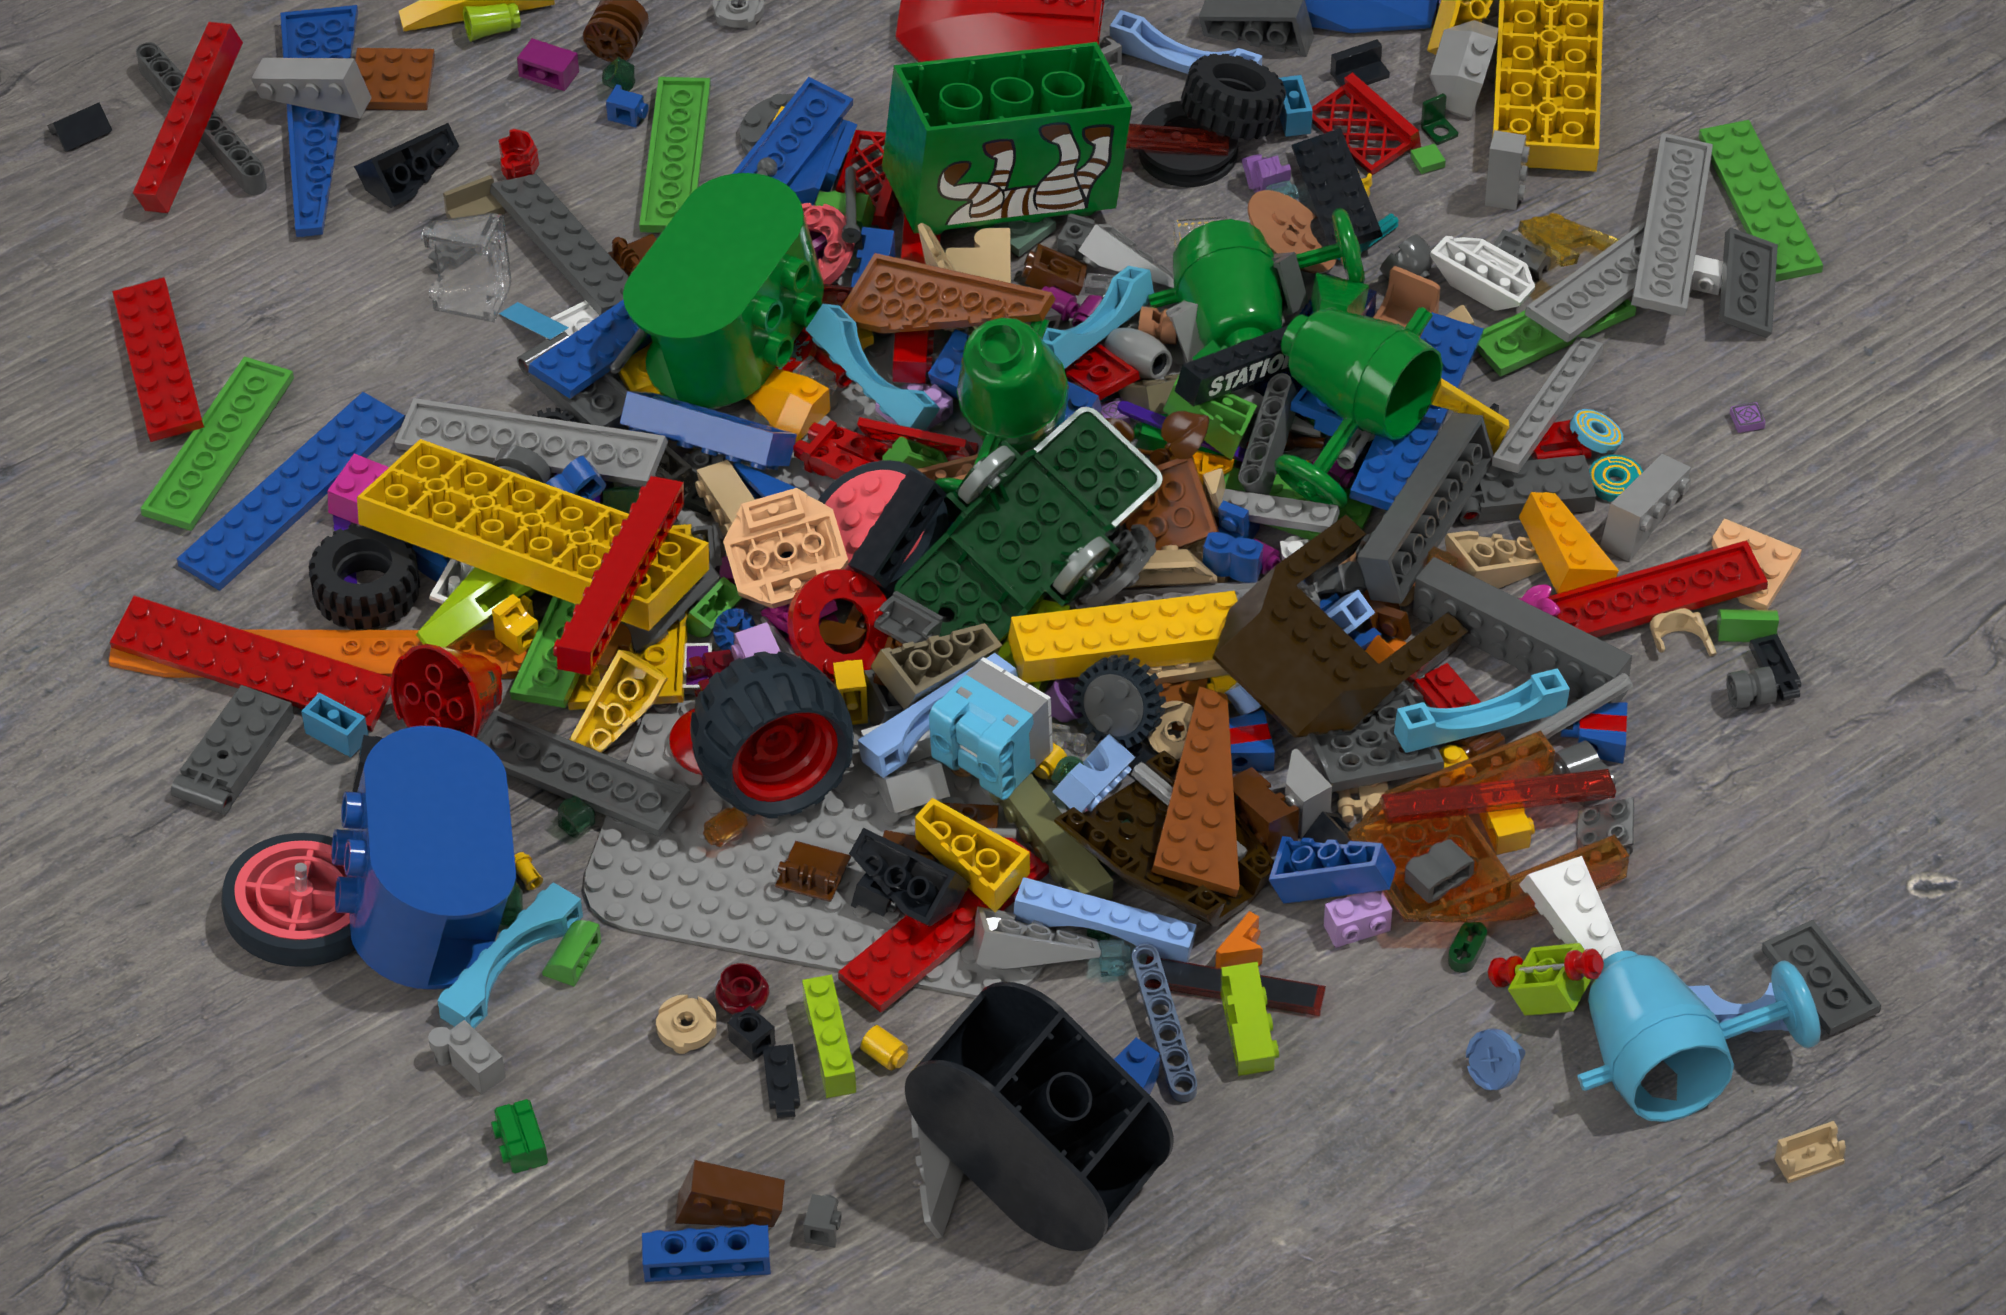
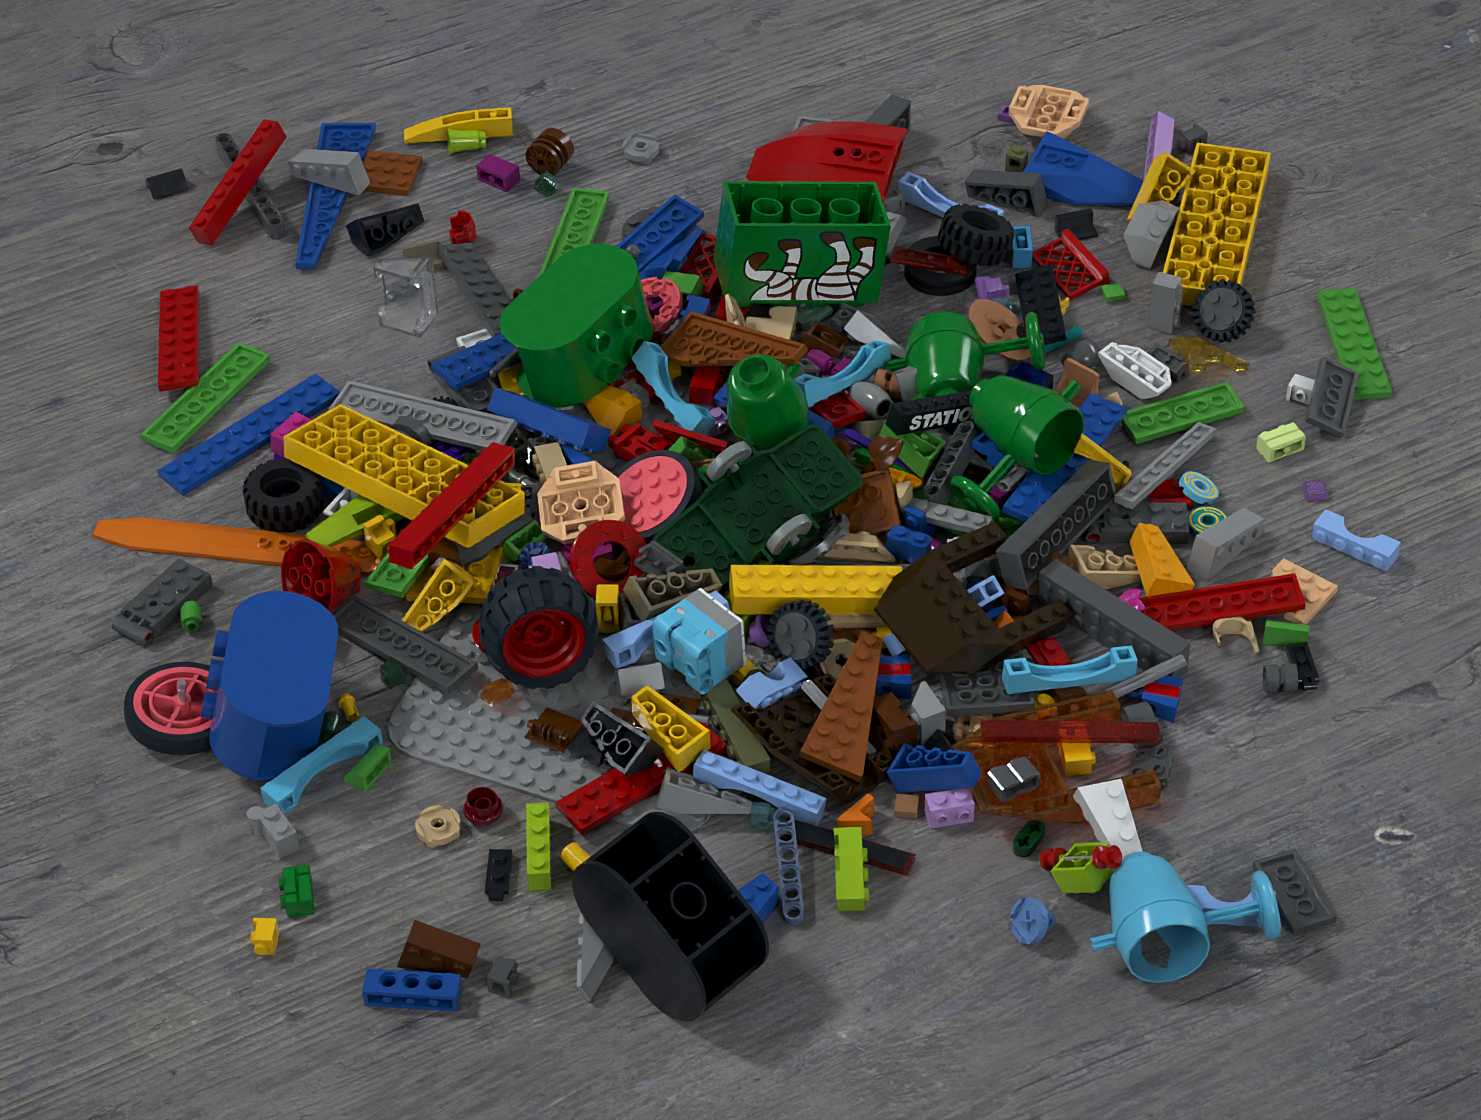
camera: 10 degrees right, 5 degrees down
(246, 659) = (191, 543): red plate -> none
(278, 766) = (191, 616): none -> bright green brick
(334, 724) = (233, 588): dark azure brick -> none
(490, 1204) = (265, 936): none -> yellow brick
(534, 320) = (446, 338): dark azure sticker -> none
(579, 479) = (448, 442): blue brick -> none
(626, 107) = (545, 205): blue brick -> none
(750, 1042) = (482, 837): black brick -> none
(850, 232) = (679, 297): dark grey bar -> none
(897, 529) = (662, 496): black brick -> none
(1292, 285) = (989, 359): dark grey hinge -> none
(1299, 920) = (906, 806): none -> medium nougat tile
(1338, 294) = (1024, 371): green slope -> none
(1434, 117) = (1122, 264): dark green bracket -> none
(1584, 174) = (1223, 311): none -> wheel
(1590, 290) = (1228, 384): light grey plate -> none
(1672, 225) = (1282, 352): light grey plate -> none
(1691, 354) = (1280, 442): none -> yellowish green brick
(1810, 1152) = (1261, 1017): tan hinge -> none
(1843, 495) = (1376, 551): none -> light blue arch

